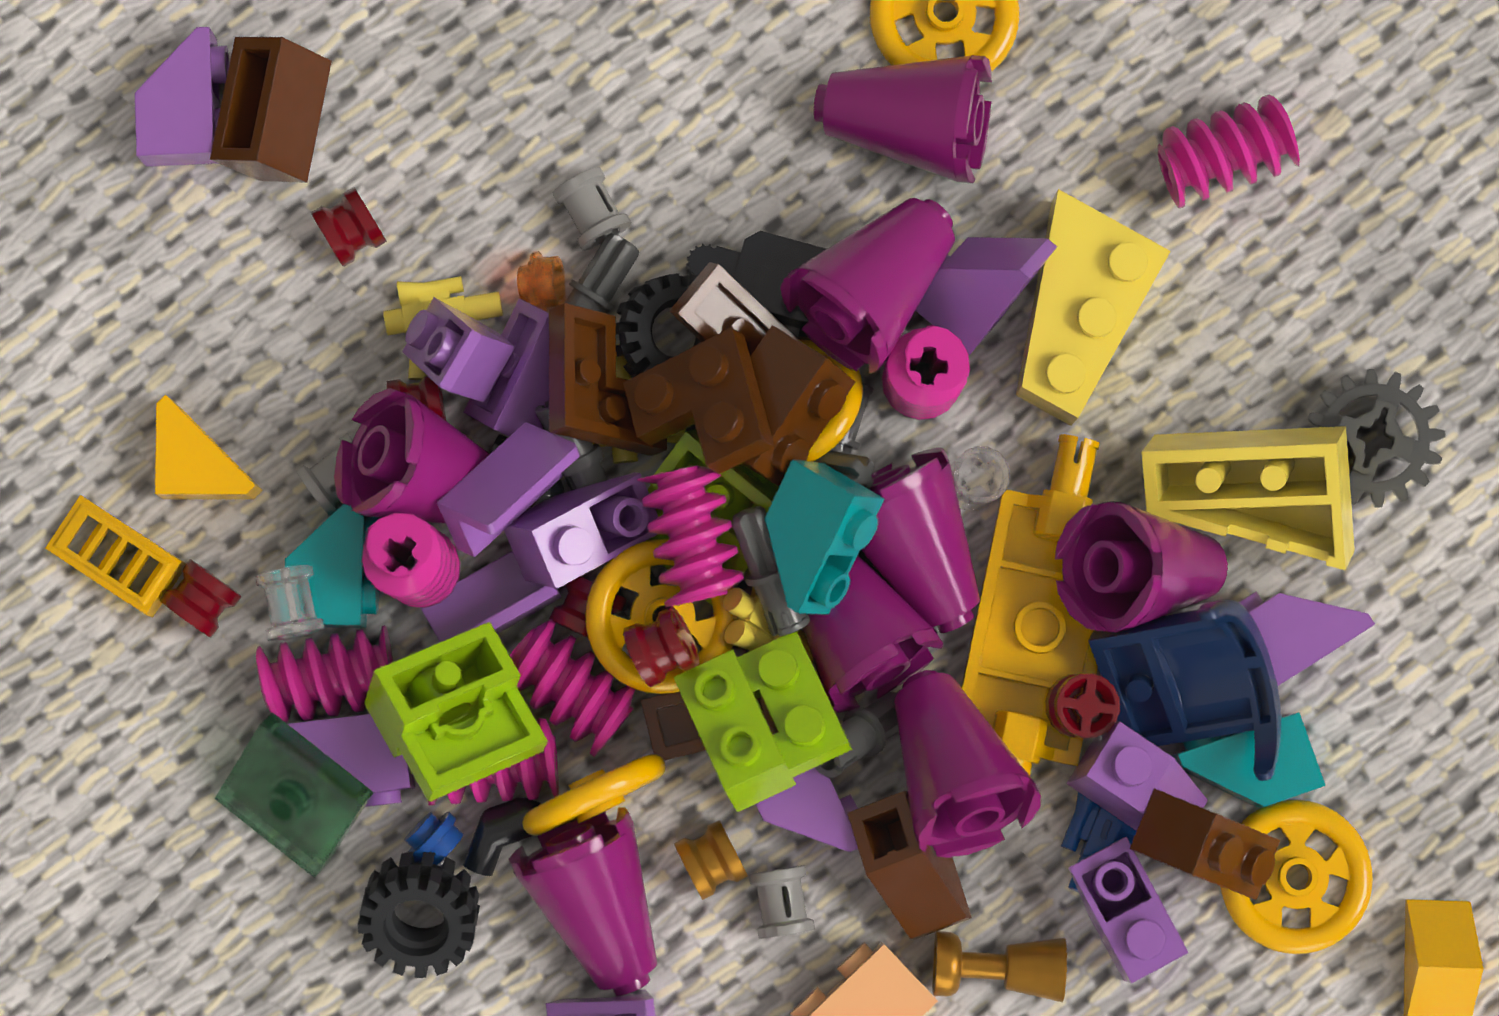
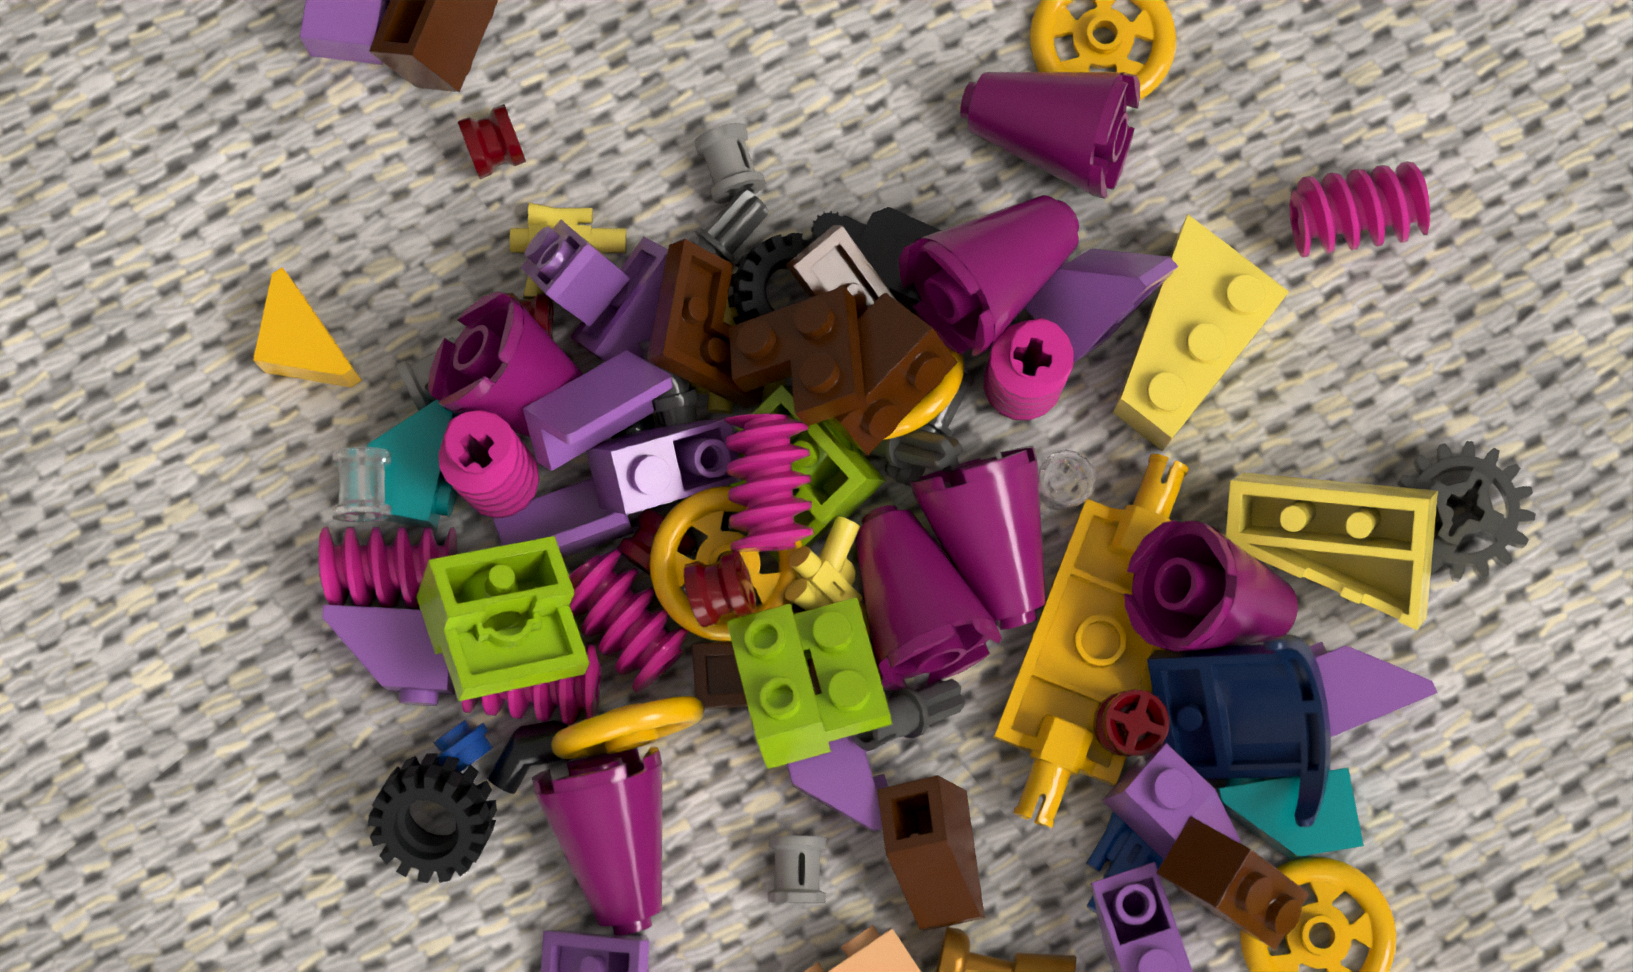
camera: 15 degrees right, 5 degrees down
(161, 579) = (240, 452): yellow slope -> none
(200, 598) = (279, 471): dark red wheel -> none
(293, 795) = (331, 677): clear green plate -> none
(542, 281) = (668, 221): clear orange plate -> none
(710, 860) = (733, 815): pearl gold wheel -> none
(763, 572) = (840, 535): dark grey axle -> none
(817, 532) = (894, 502): teal slope -> none
(957, 769) = (996, 765): magenta cone -> none

